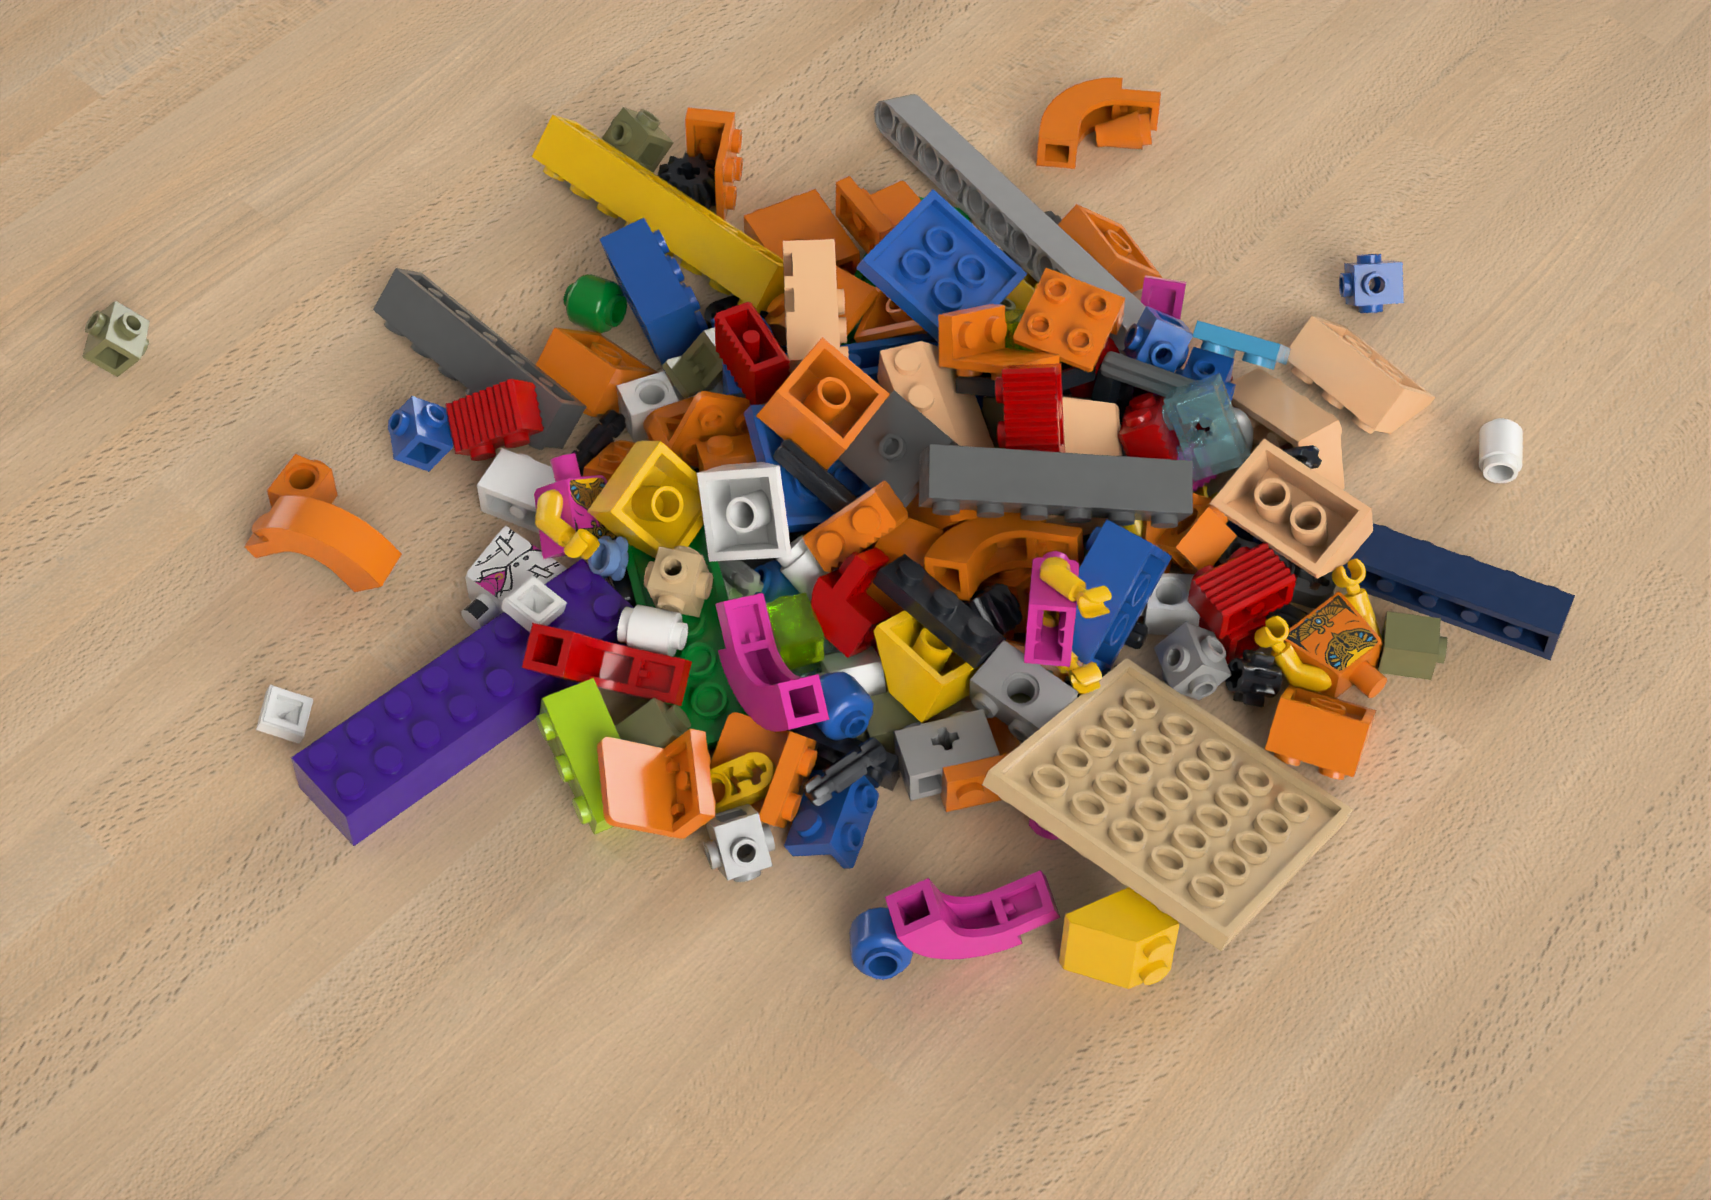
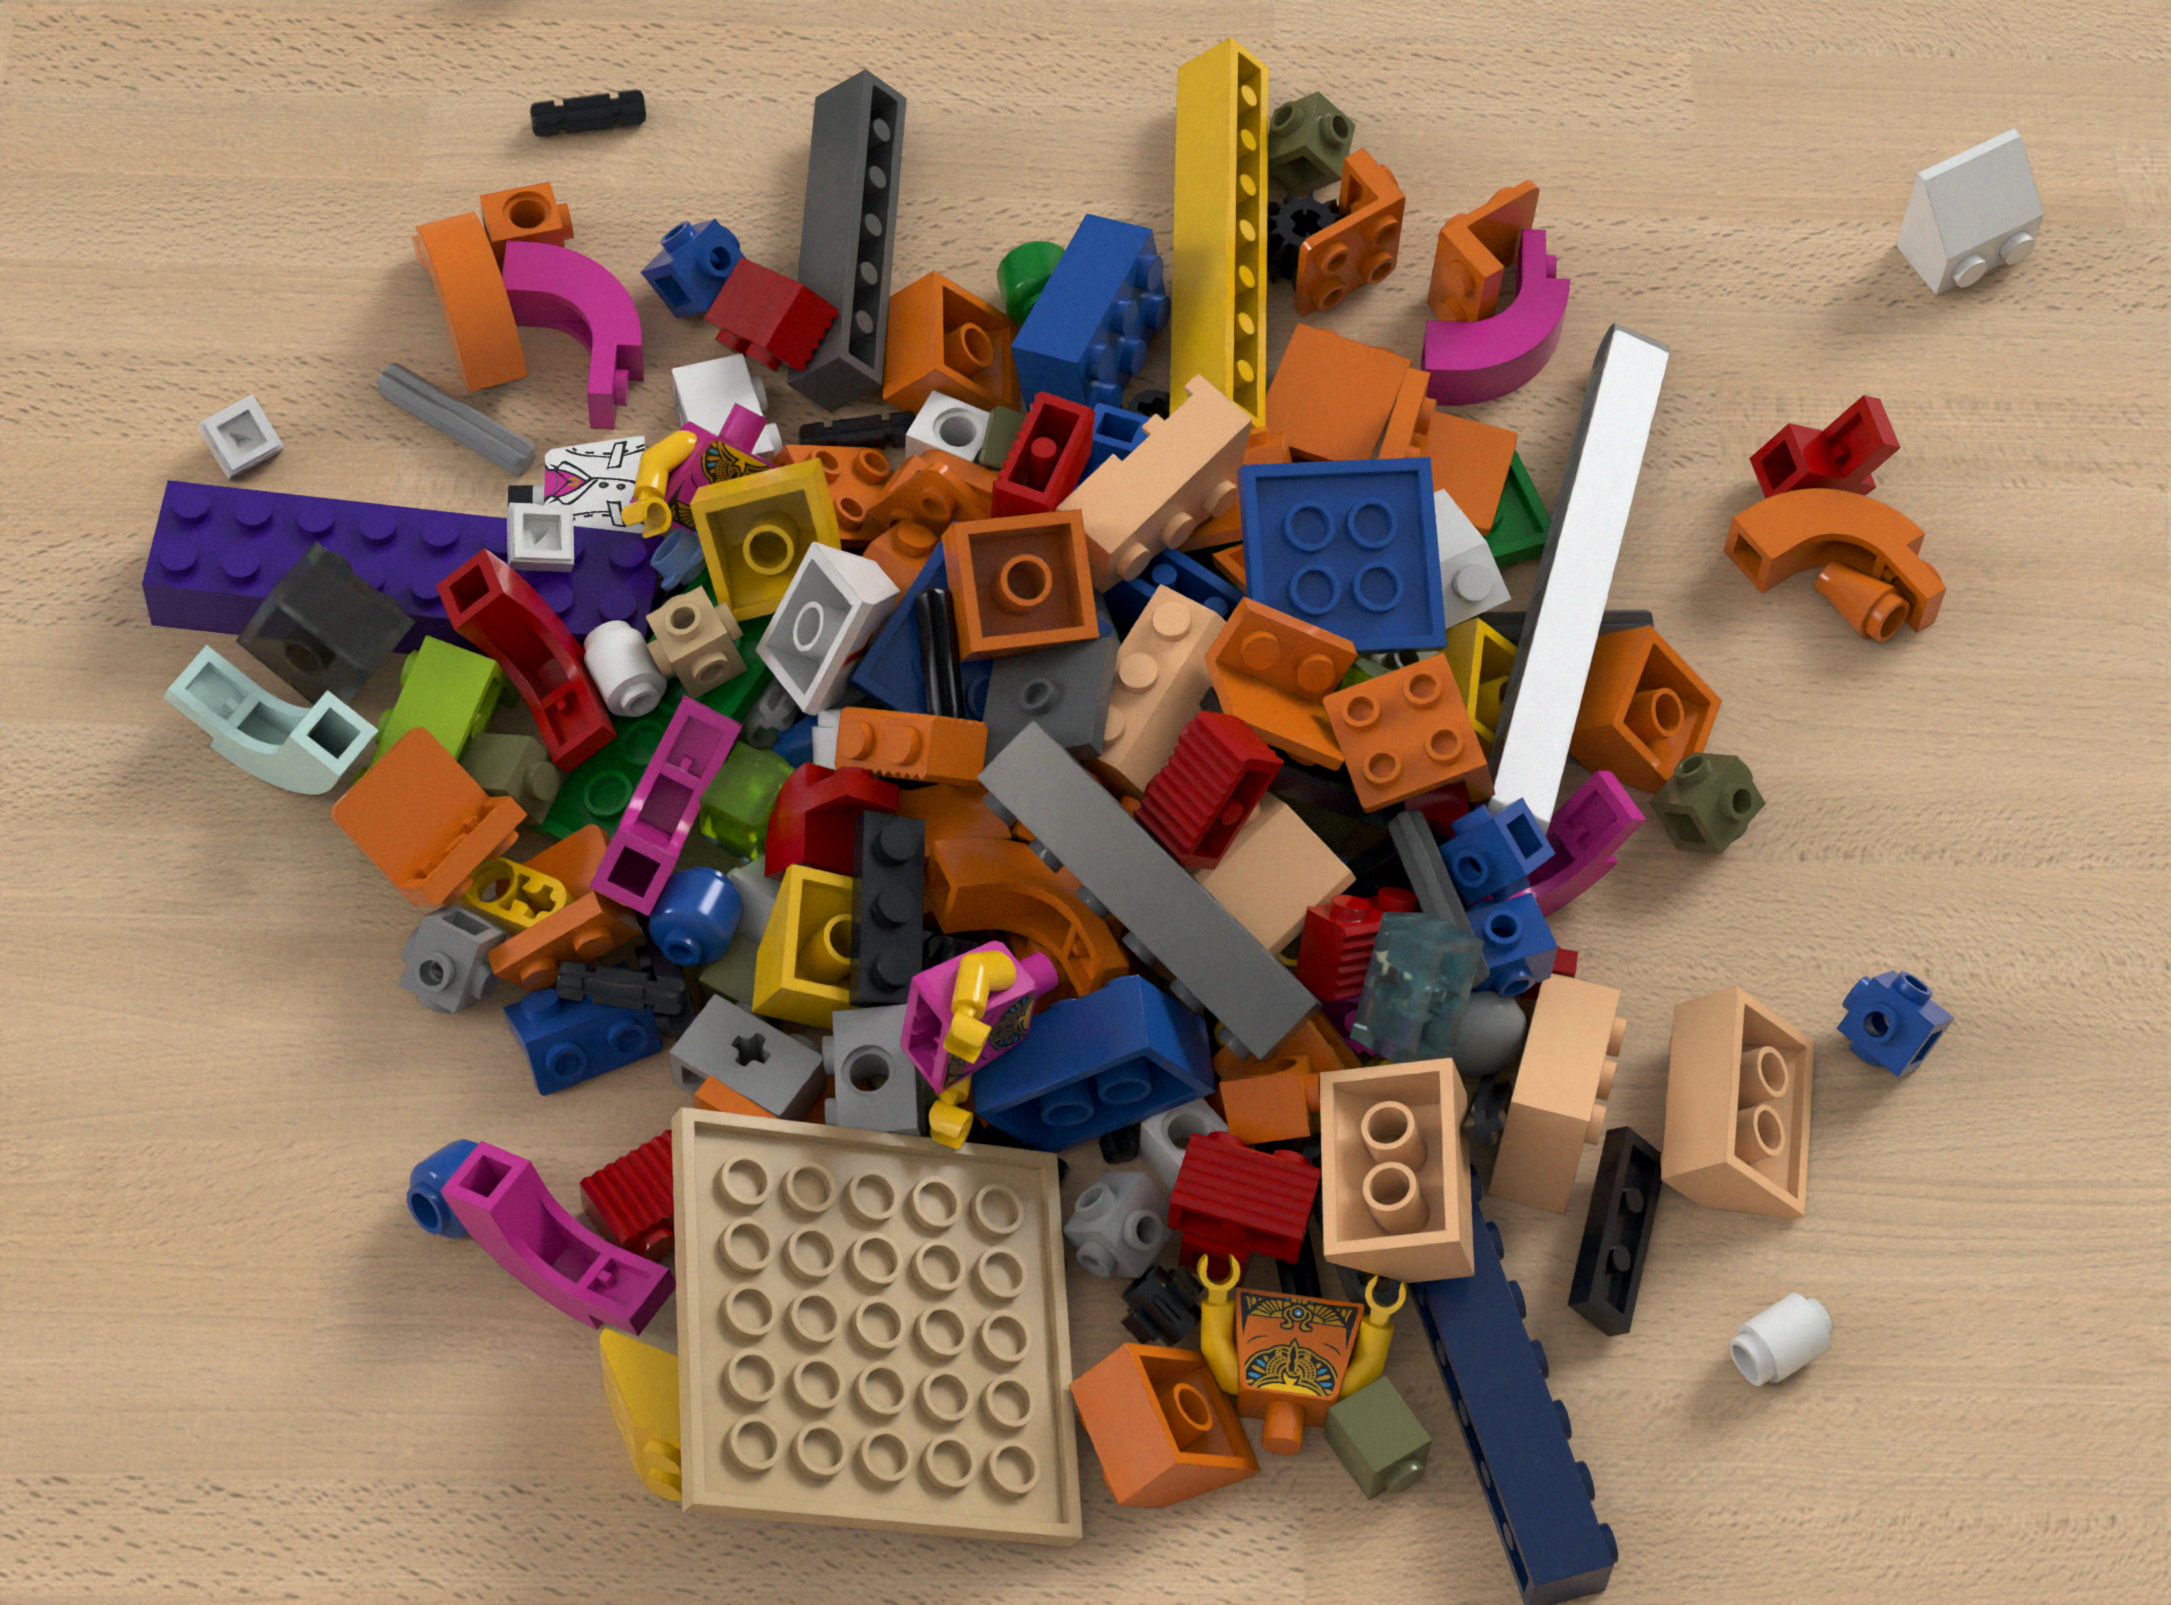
camera: 45 degrees right, 5 degrees up
(257, 415) = (588, 113): none -> black axle
(384, 609) = (456, 419): none -> light grey axle
(400, 498) = (583, 299): none -> dark pink arch
(477, 750) = (325, 628): none -> clear smoke slope
(508, 831) = (265, 735): none -> light aqua arch
(793, 129) = (1476, 252): none -> orange bracket
(835, 133) = (1505, 351): none -> dark pink arch
(974, 848) = (634, 1199): none -> red brick
(1040, 82) = (1831, 458): none -> red brick
(1185, 259) = (1707, 802): none -> olive brick
(1227, 341) = (1599, 940): dark azure plate -> none
(1384, 473) = (1617, 1232): none -> black plate

